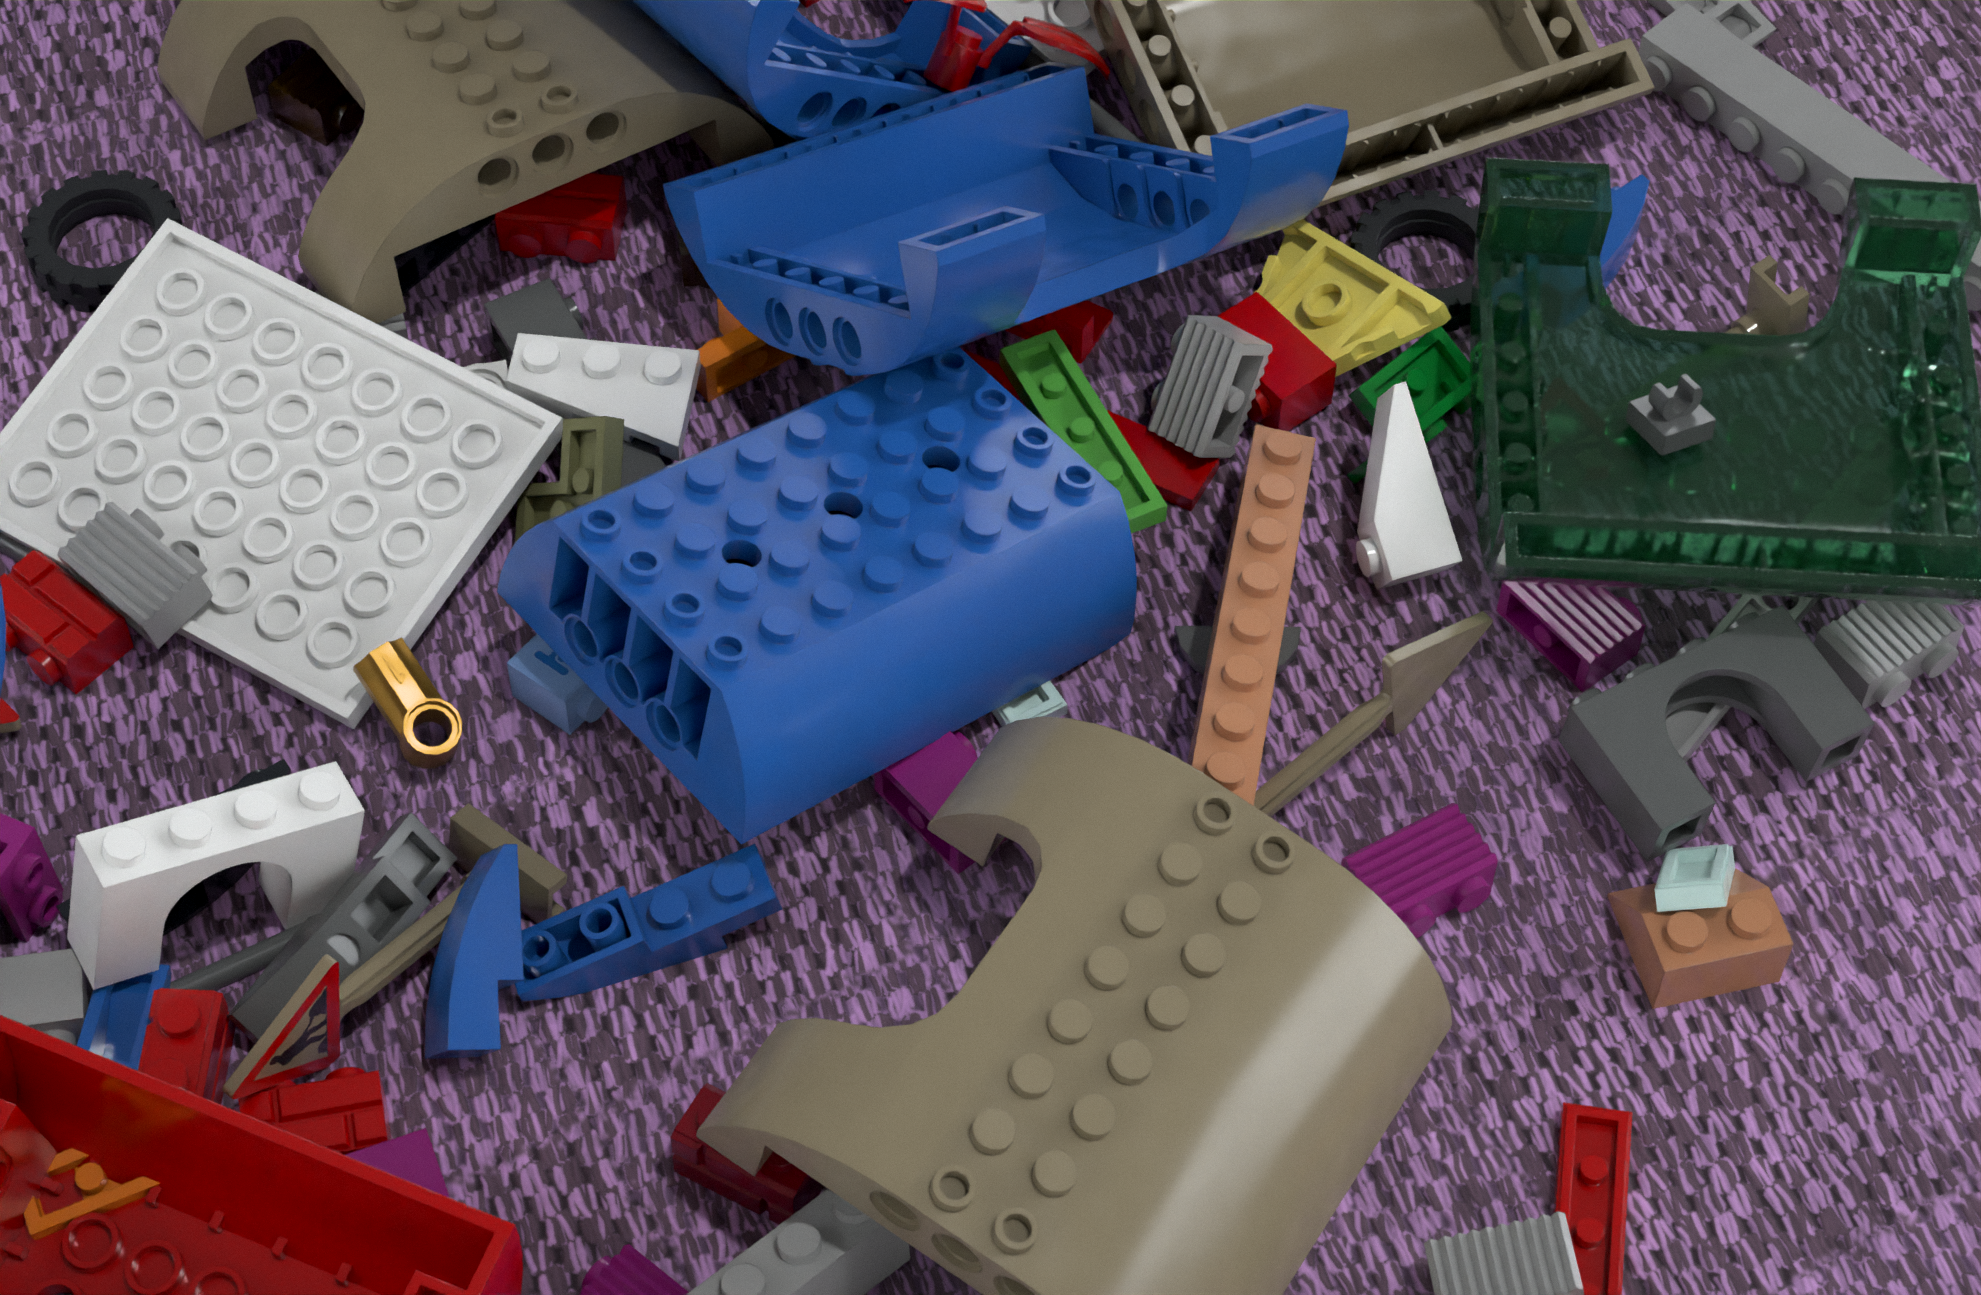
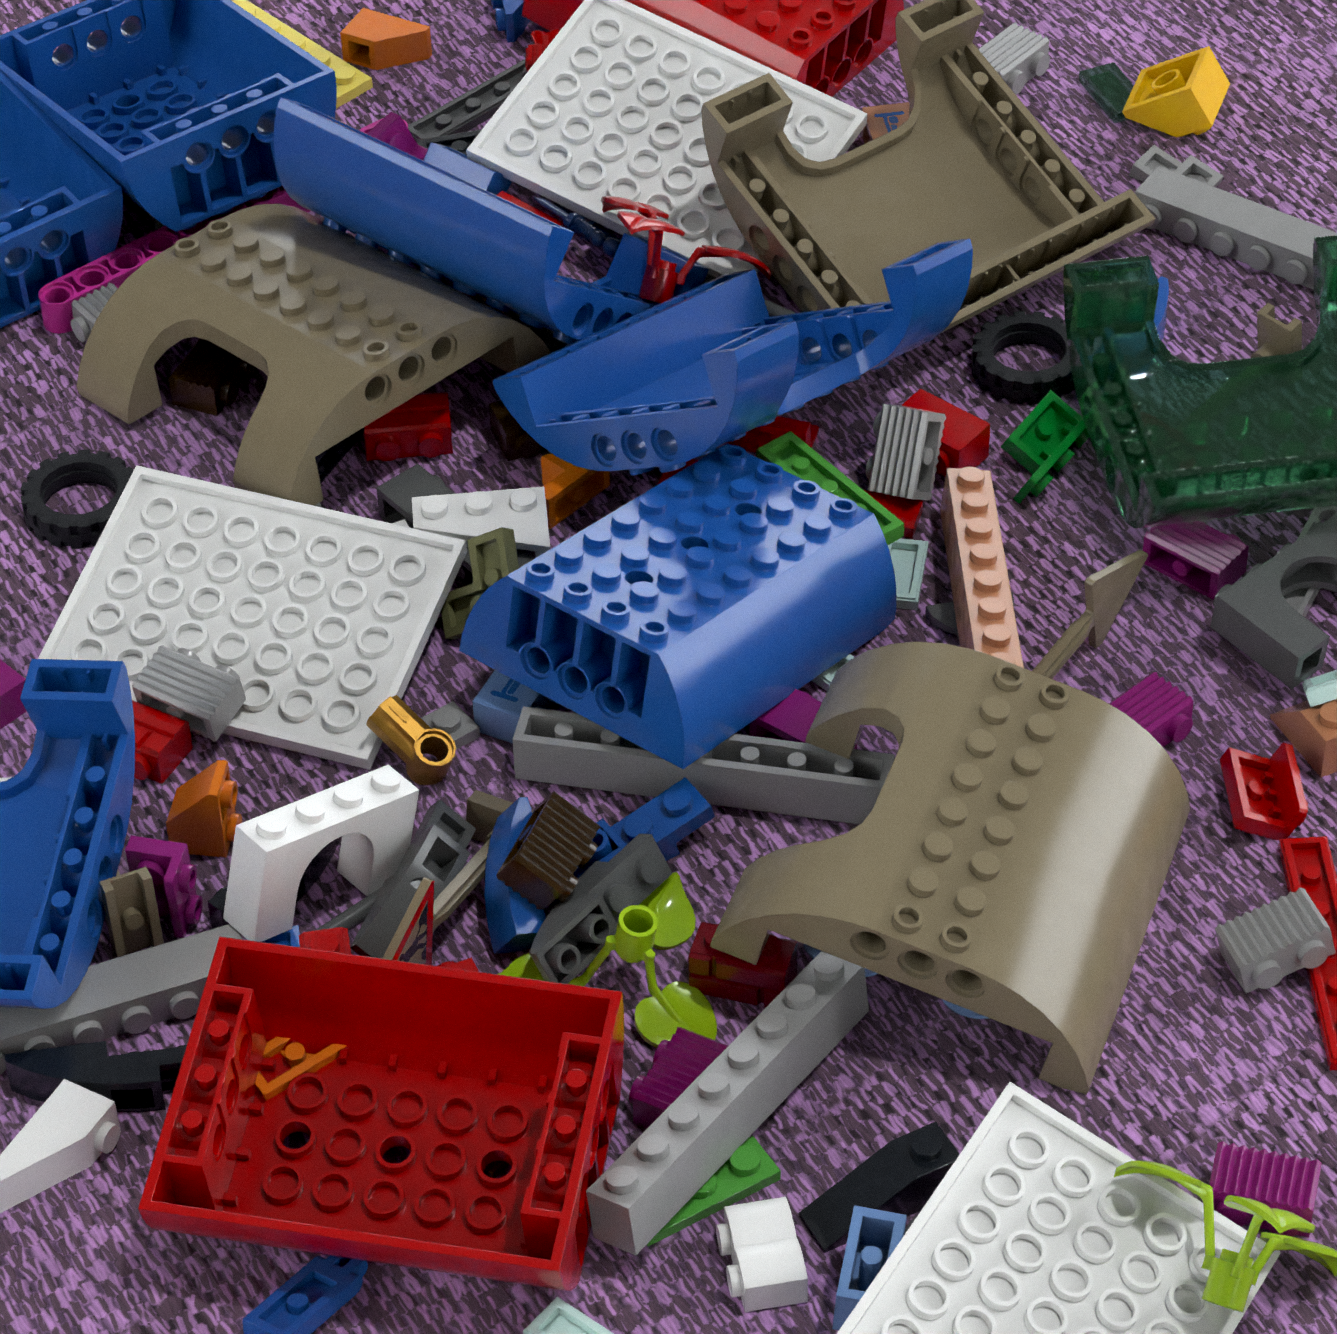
camera: 10 degrees left, 10 degrees down
(101, 766) = (205, 812): none -> orange slope
(475, 686) = (454, 722): none -> light grey plate
(521, 938) = (549, 851): none -> dark brown brick
(558, 1032) = (580, 924): none -> dark grey slope
(659, 1040) = (659, 922): none -> lime plant
(830, 847) = (735, 774): none -> light grey brick
(1163, 563) = (909, 565): none -> light aqua tile
(1344, 298) = (983, 383): light yellow wing -> none
(1402, 510) = (1061, 503): white slope -> none
(1561, 1024) = (1264, 792): none -> red bracket
(1671, 416) = (1229, 414): dark grey tile -> none

